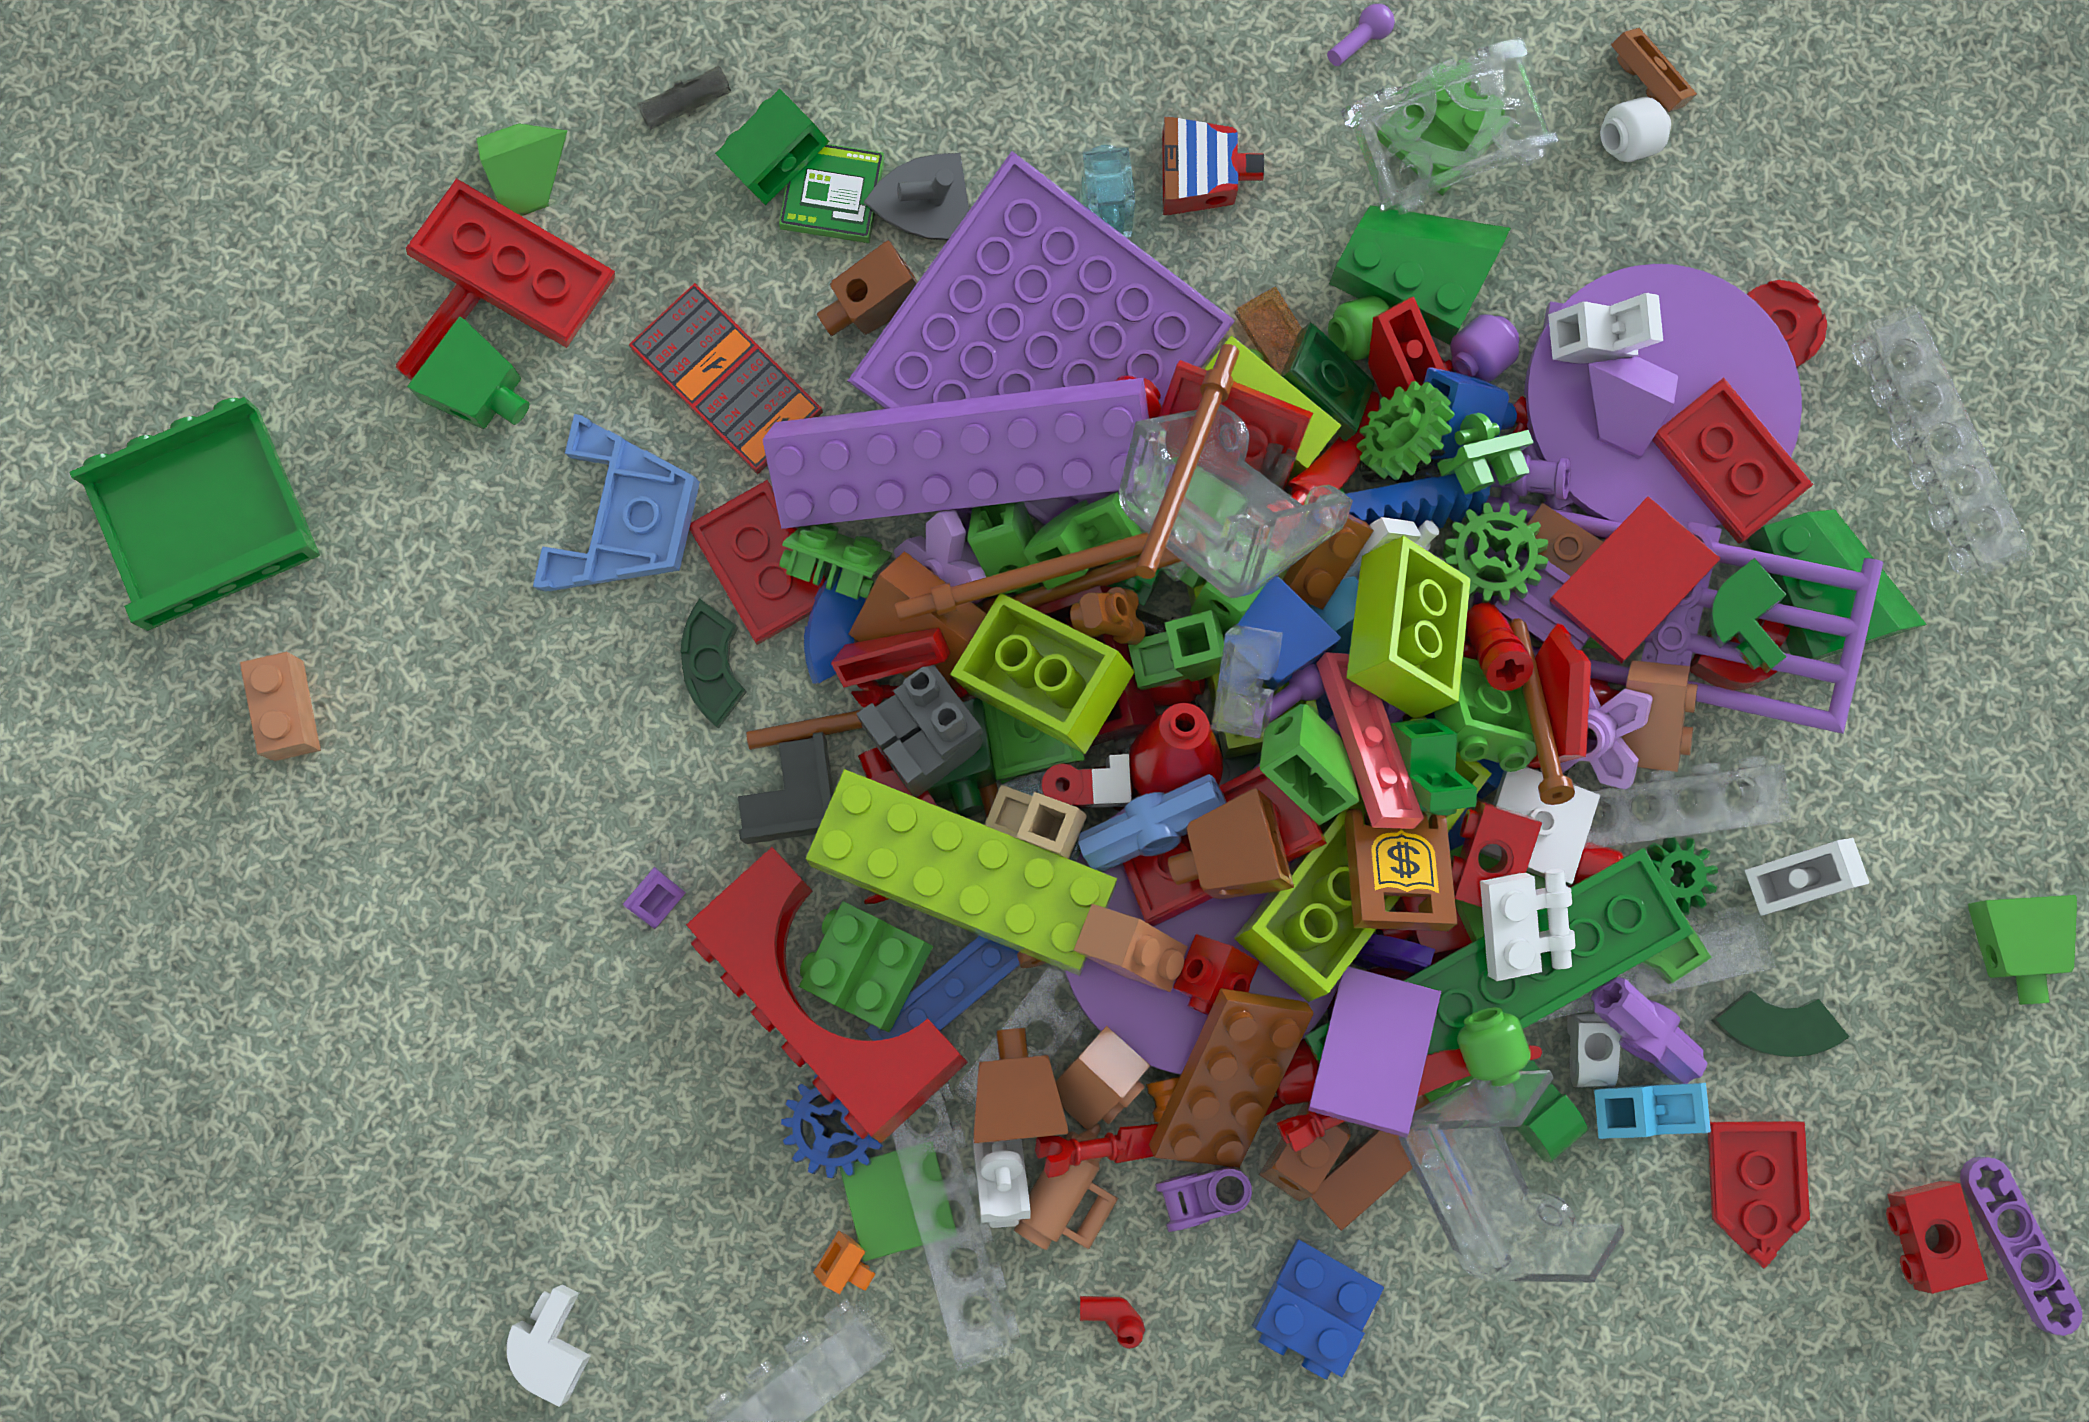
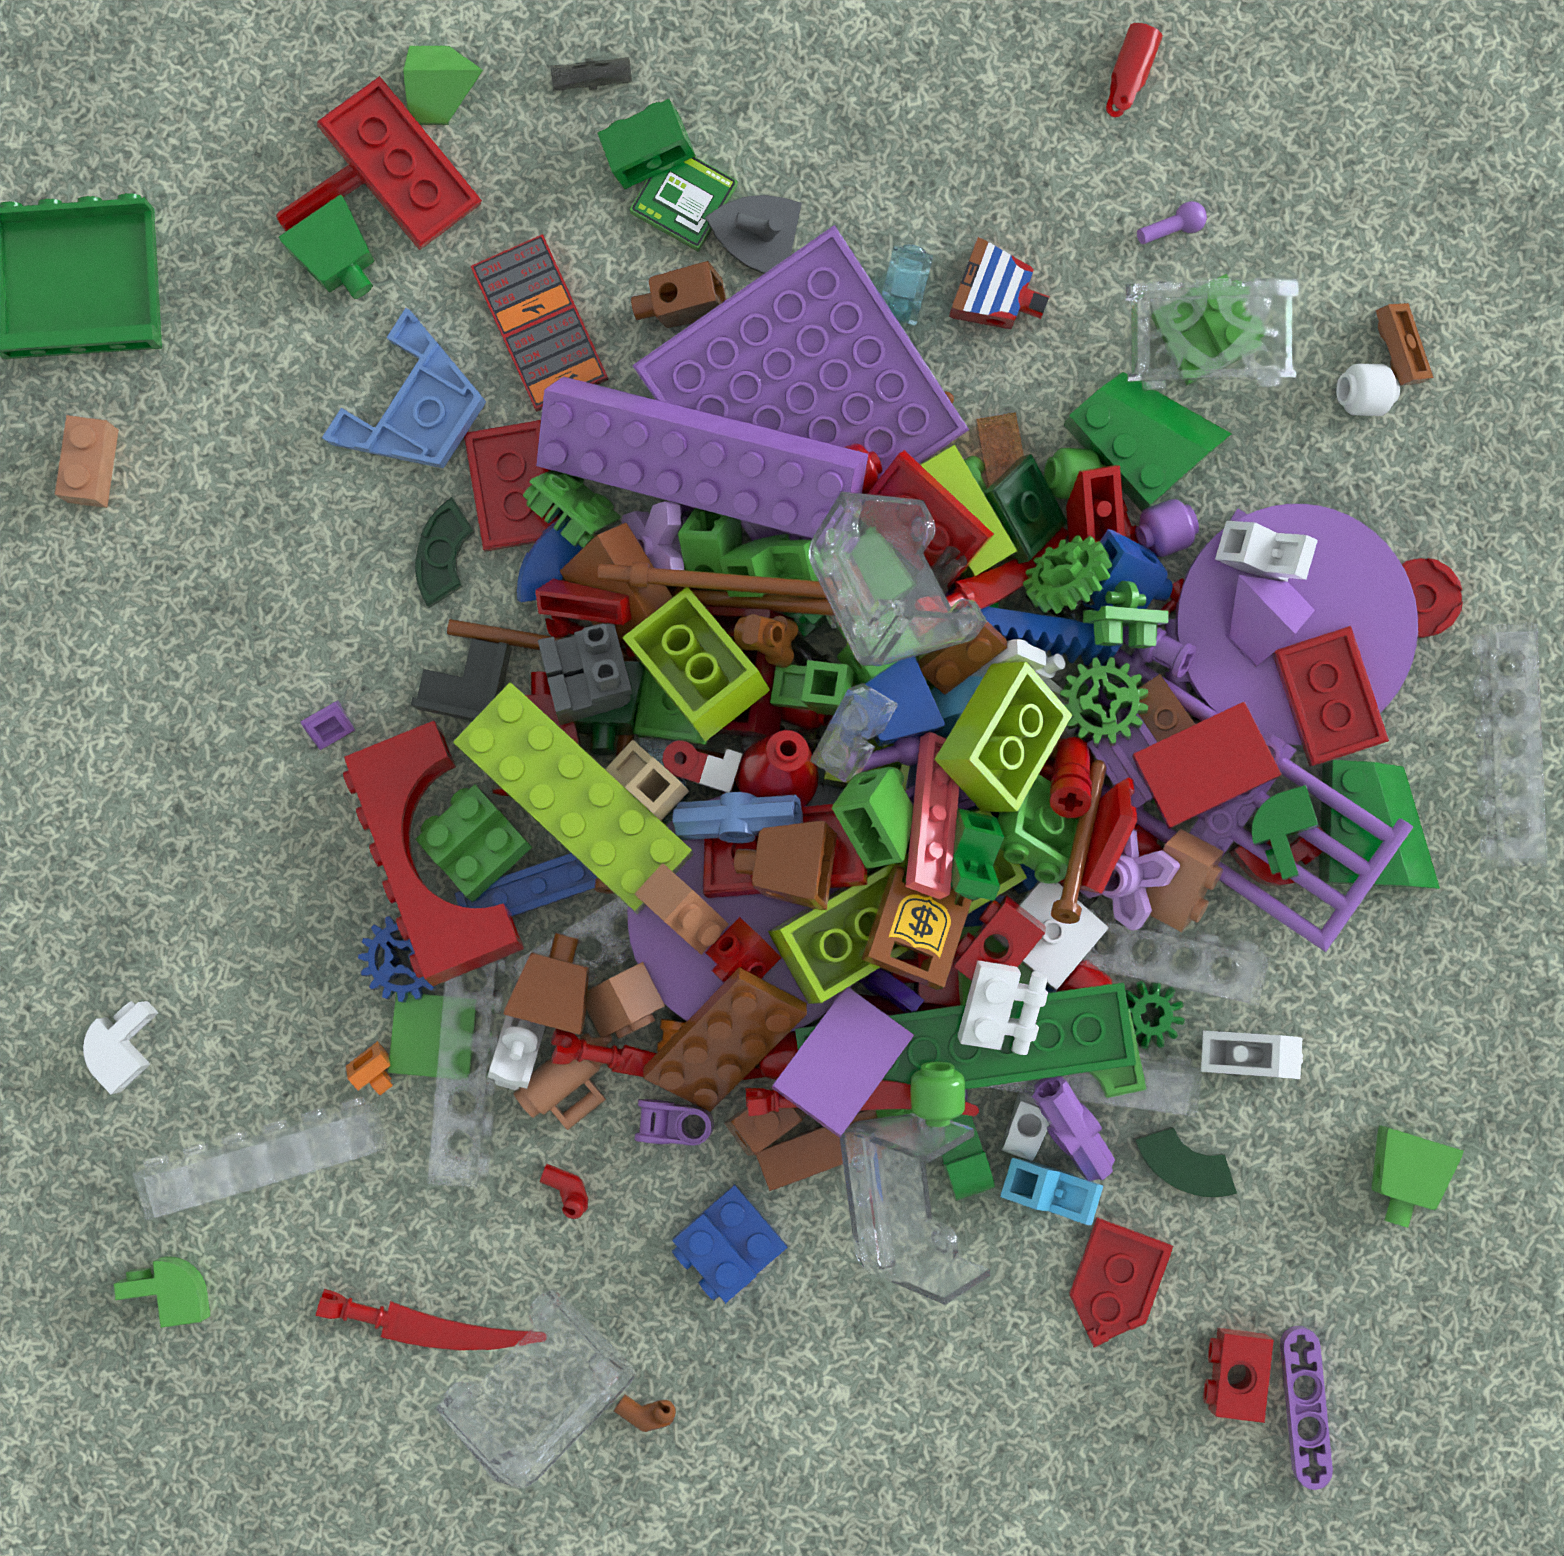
camera: 20 degrees right, 5 degrees up
(1214, 391) = (919, 487): dark orange bar -> none

